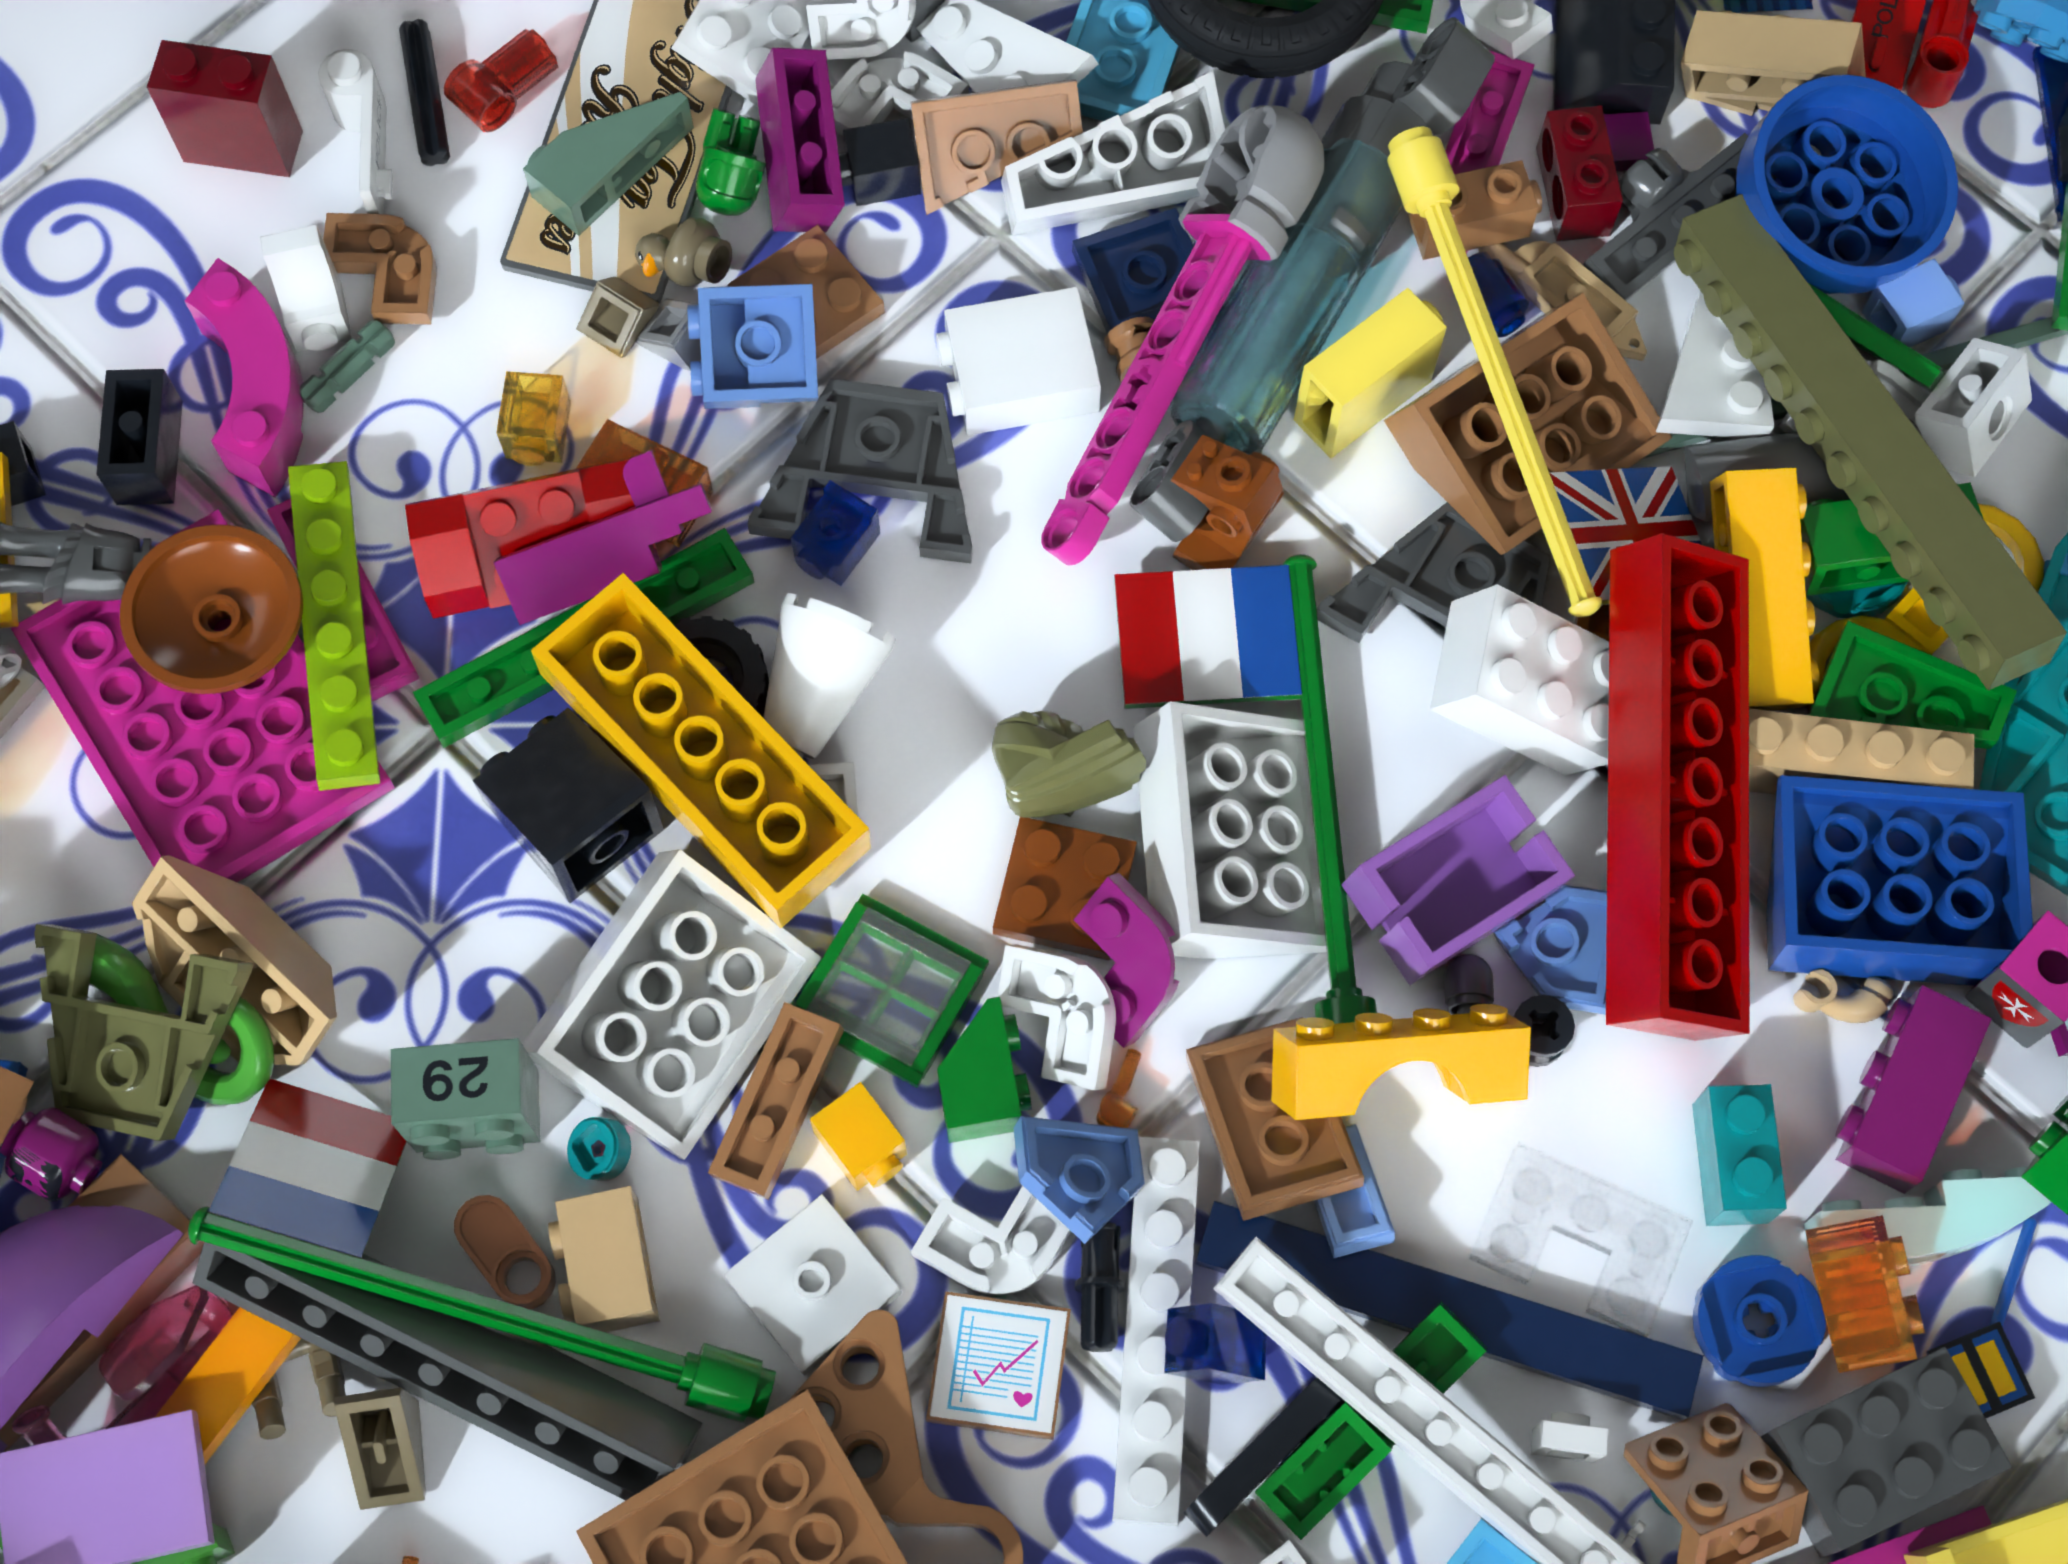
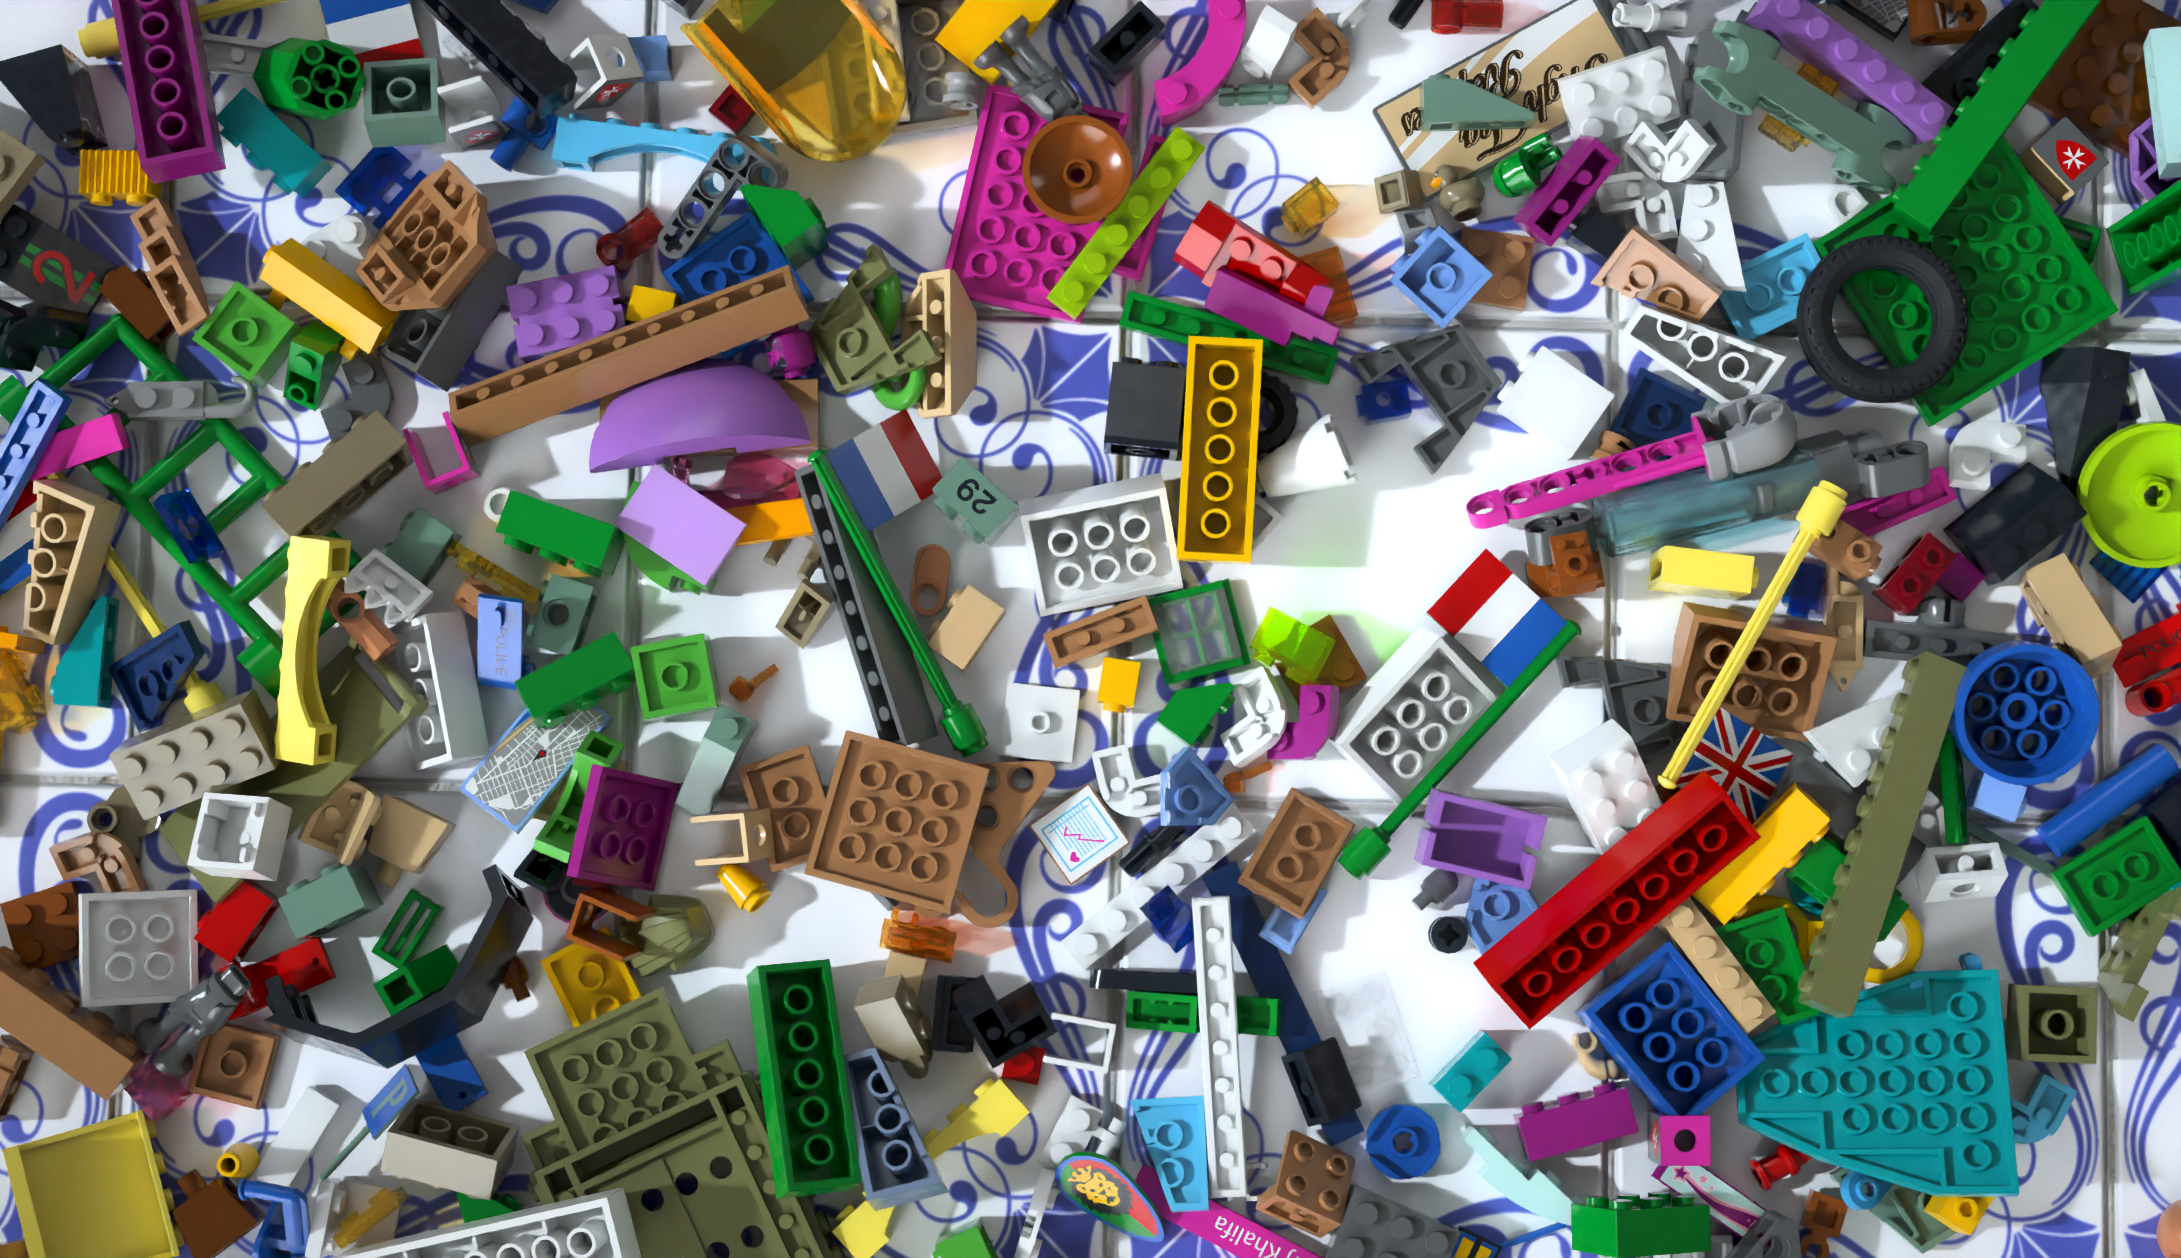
camera: 50 degrees right, 15 degrees up
(599, 1149) = (1009, 576): teal tile -> none
(1015, 884) = (1291, 645): none -> clear neon green brick
(1060, 768) = (1364, 611): olive hair -> none
(1329, 1066) = (1336, 860): yellow arch -> none
(1569, 1438) = (1274, 1103): white plate -> none
(1595, 1349) = (1321, 1082): none -> black panel
(1862, 1294) = (1452, 1177): clear orange brick -> none
(2015, 205) = (2107, 799): none -> blue brick

